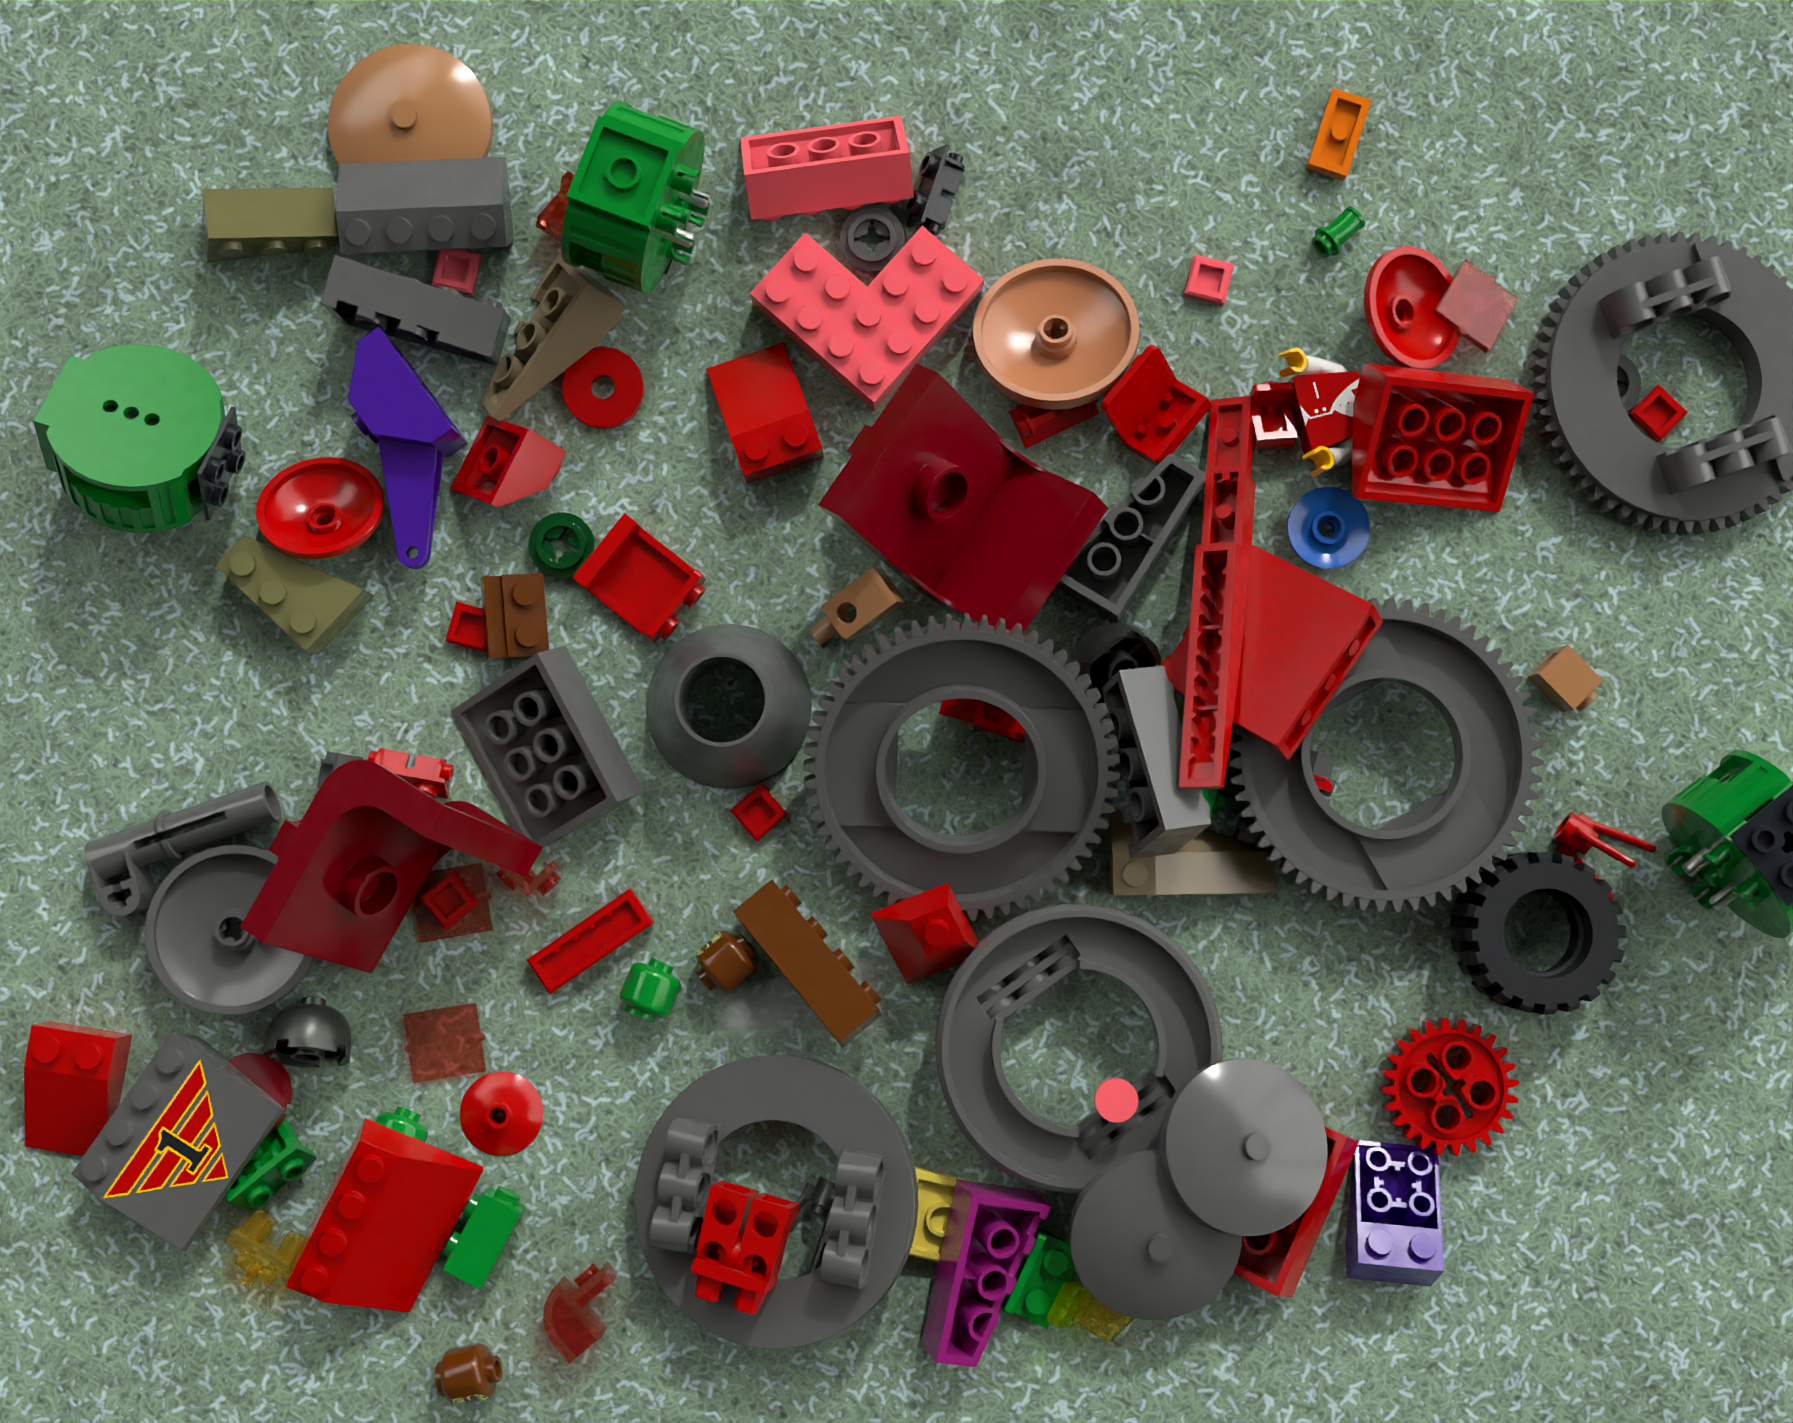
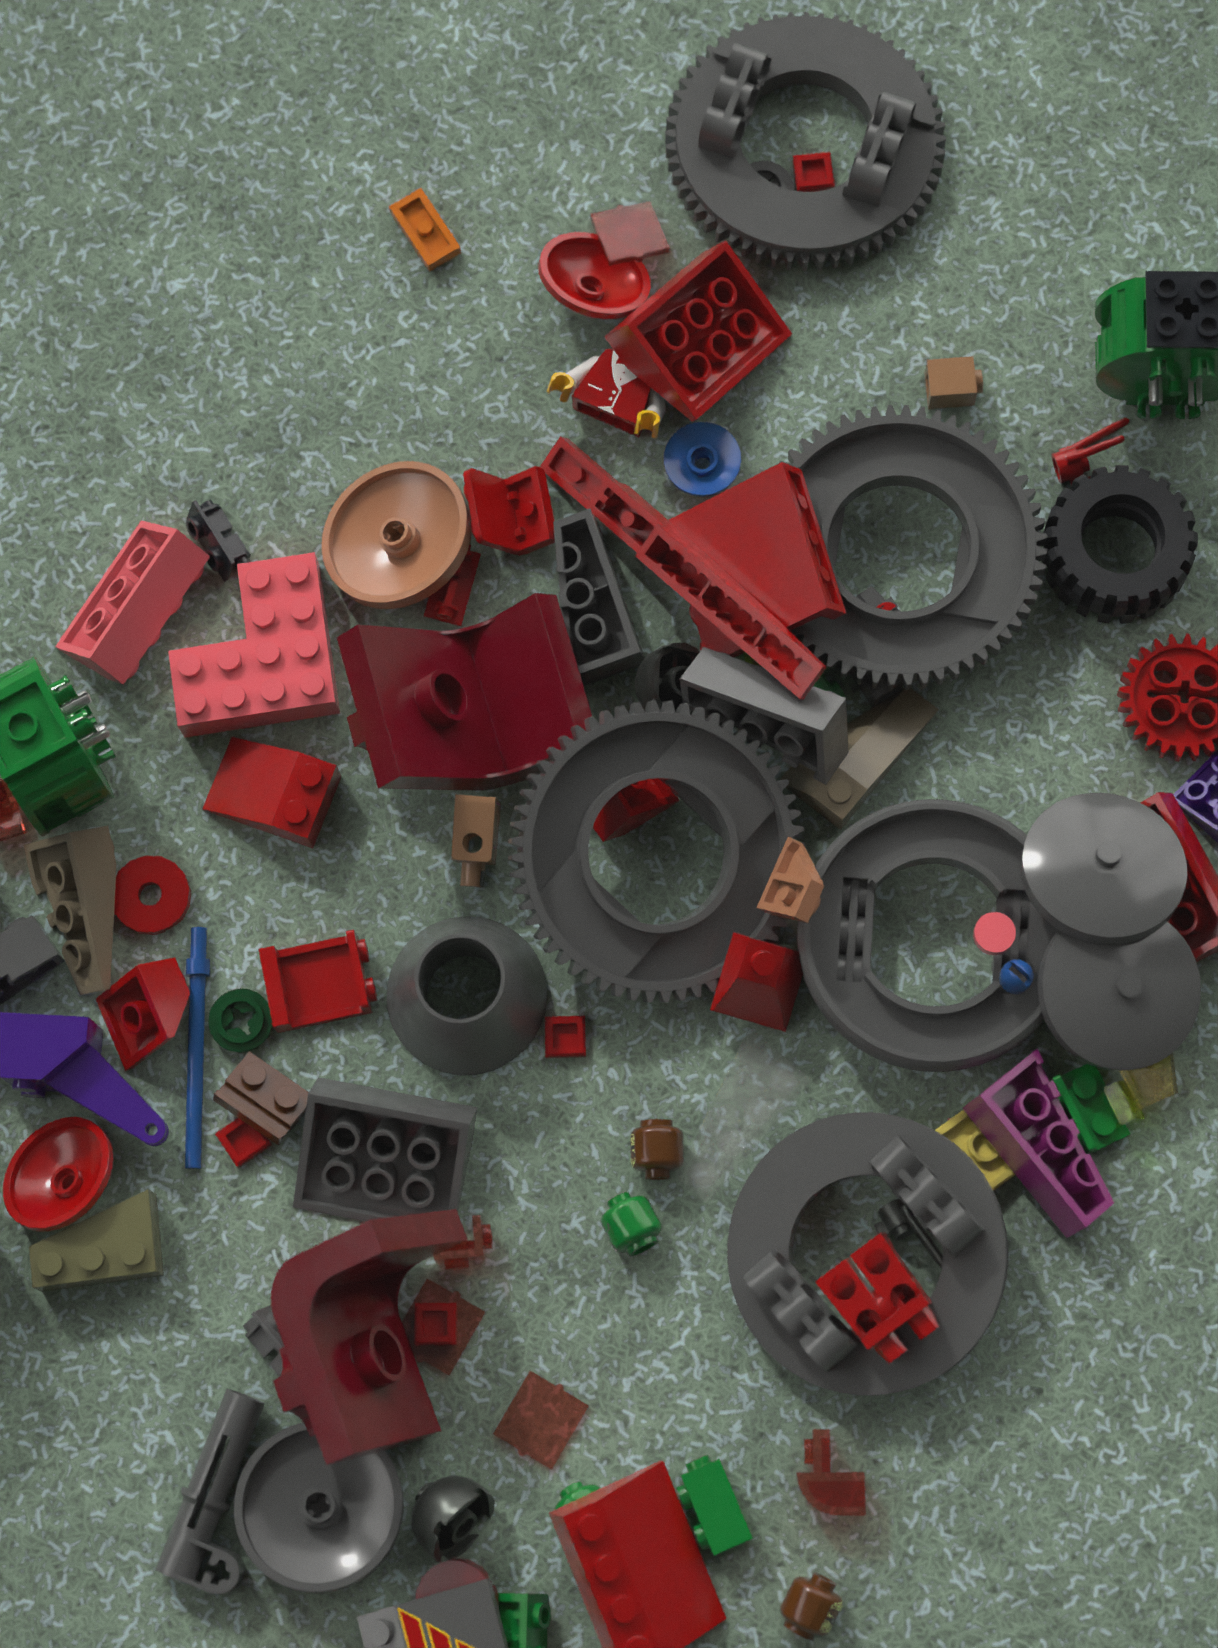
camera: 40 degrees left, 10 degrees down
(522, 1110) = (636, 1443): red dish -> none
(574, 477) = (197, 969): none -> blue bar
(590, 941) = (556, 1241): red plate -> none
(808, 963) = (708, 1083): reddish brown brick -> none
(857, 227) = (212, 595): dark grey gear -> none
(1022, 902) = (793, 885): none -> nougat wing
(1085, 1145) = (1011, 982): none -> blue hinge
(1208, 279) = (450, 401): coral tile -> none
(1273, 415) = (587, 432): red bracket -> none
(1330, 238) = (495, 294): green pin -> none

